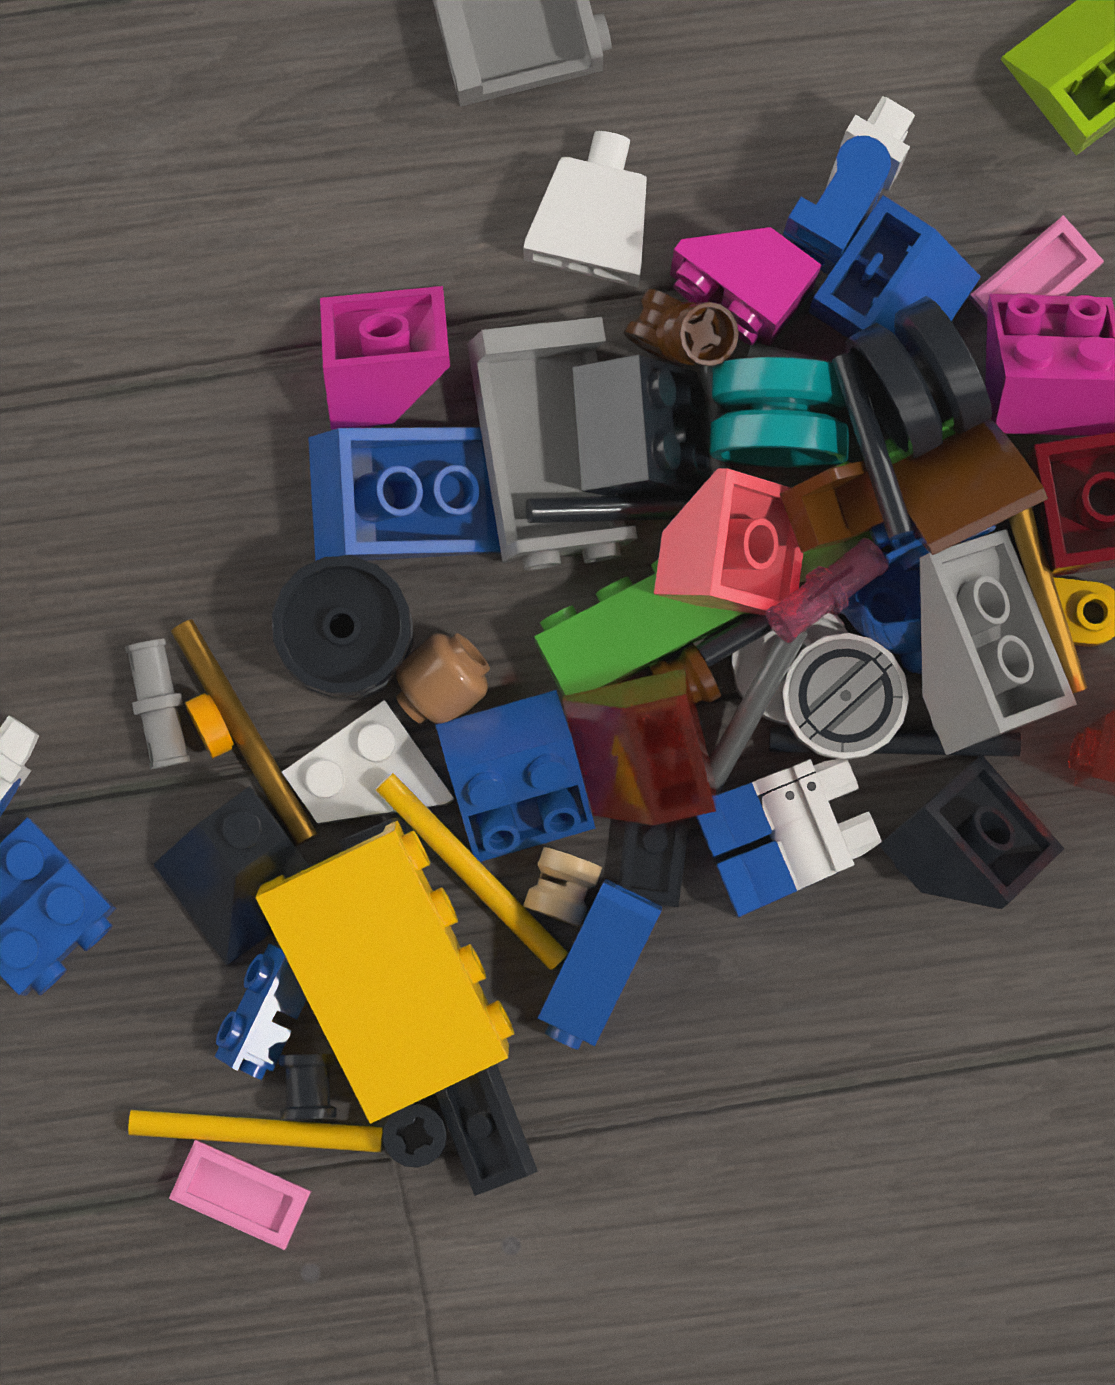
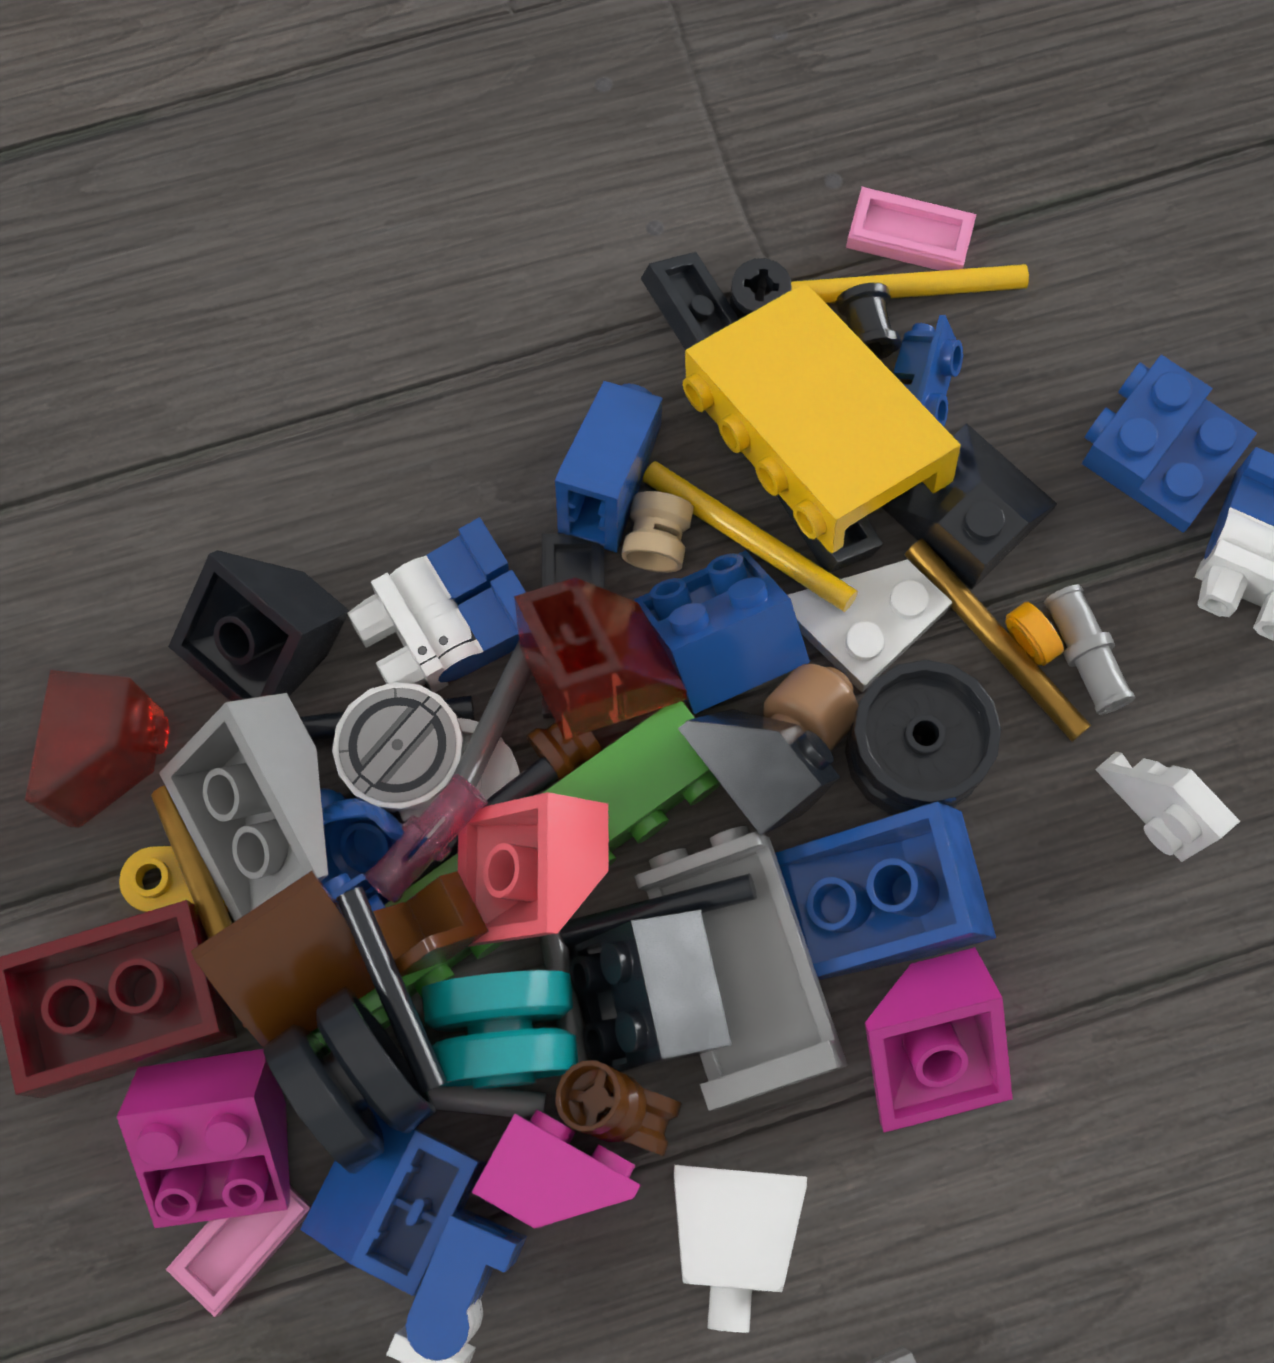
camera: 175 degrees right, 10 degrees down
(119, 521) = (1172, 802): none -> white wing
(505, 621) = (763, 764): none -> black slope

